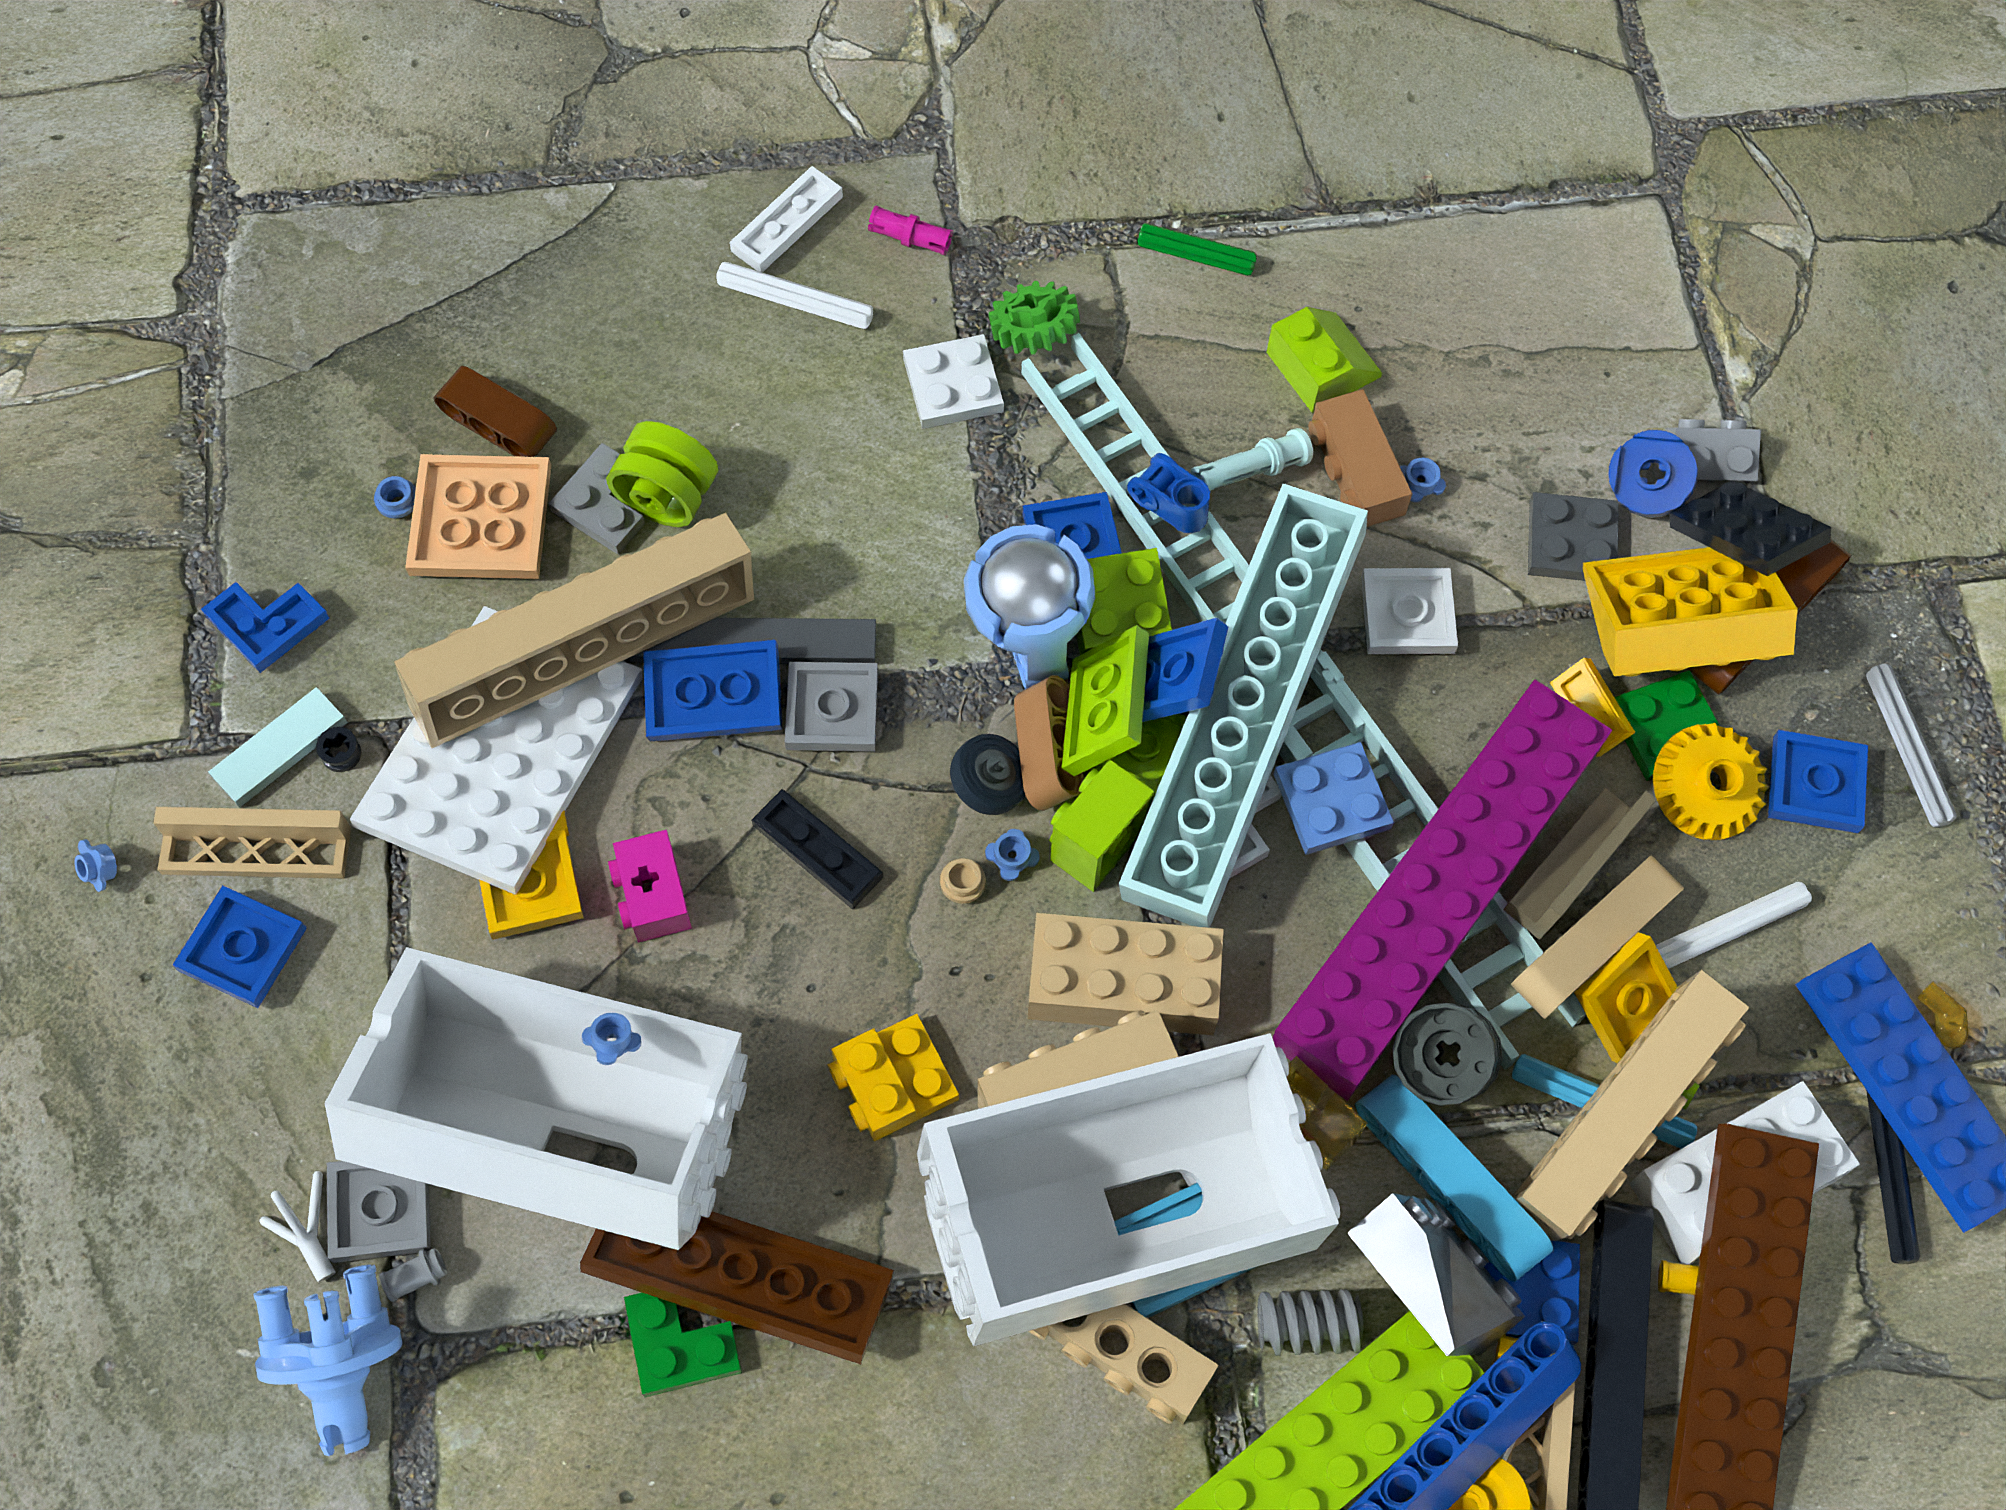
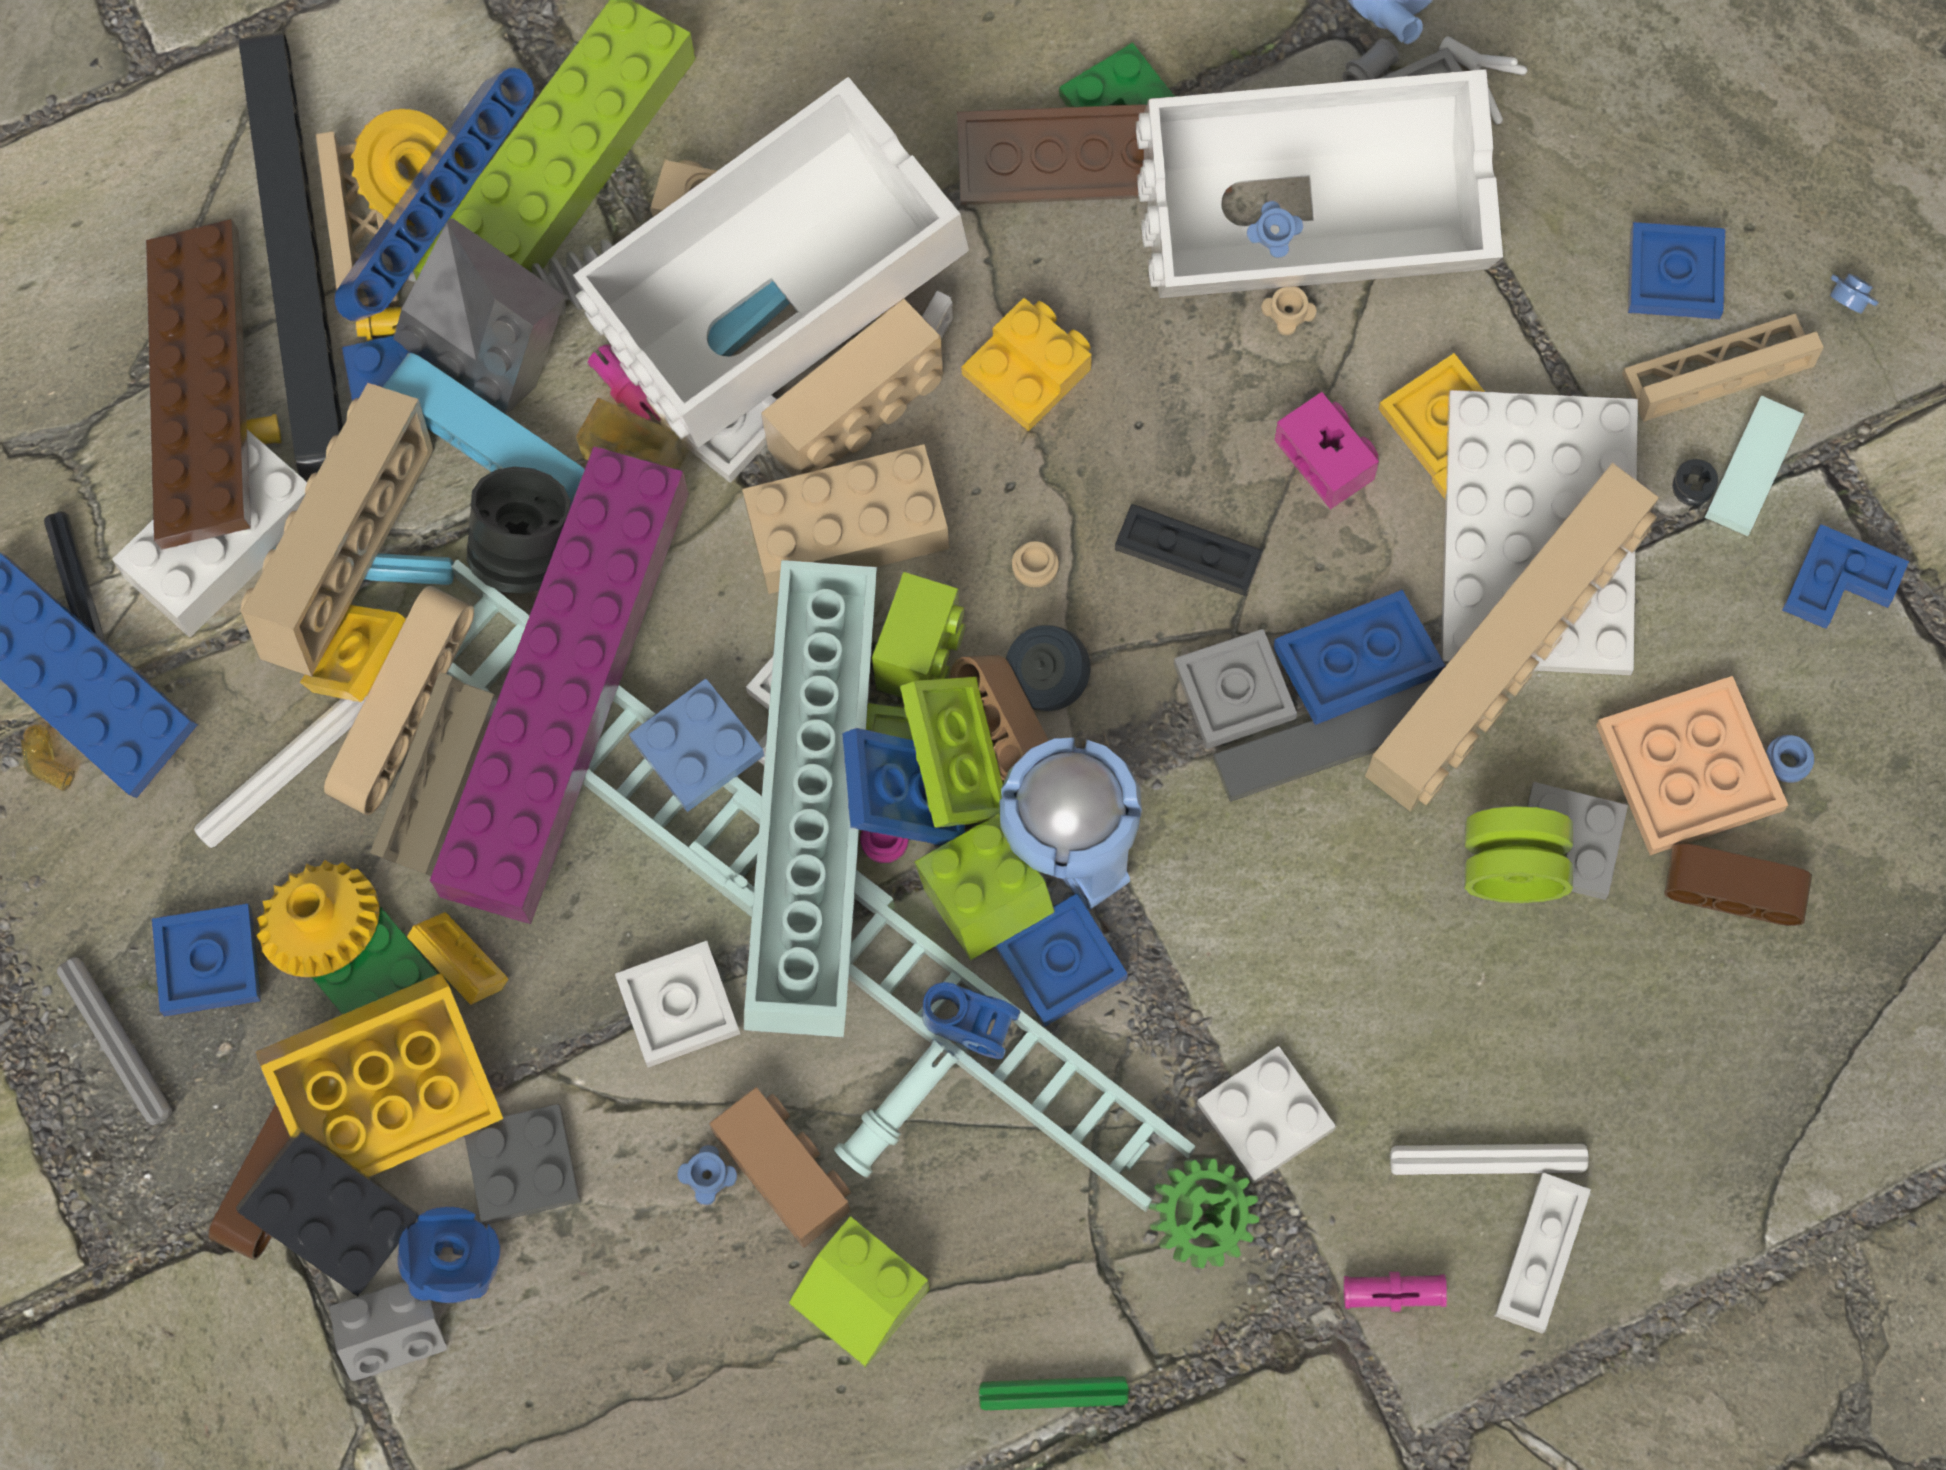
camera: 165 degrees right, 5 degrees up
(1012, 841) = (994, 593): medium blue plate -> none

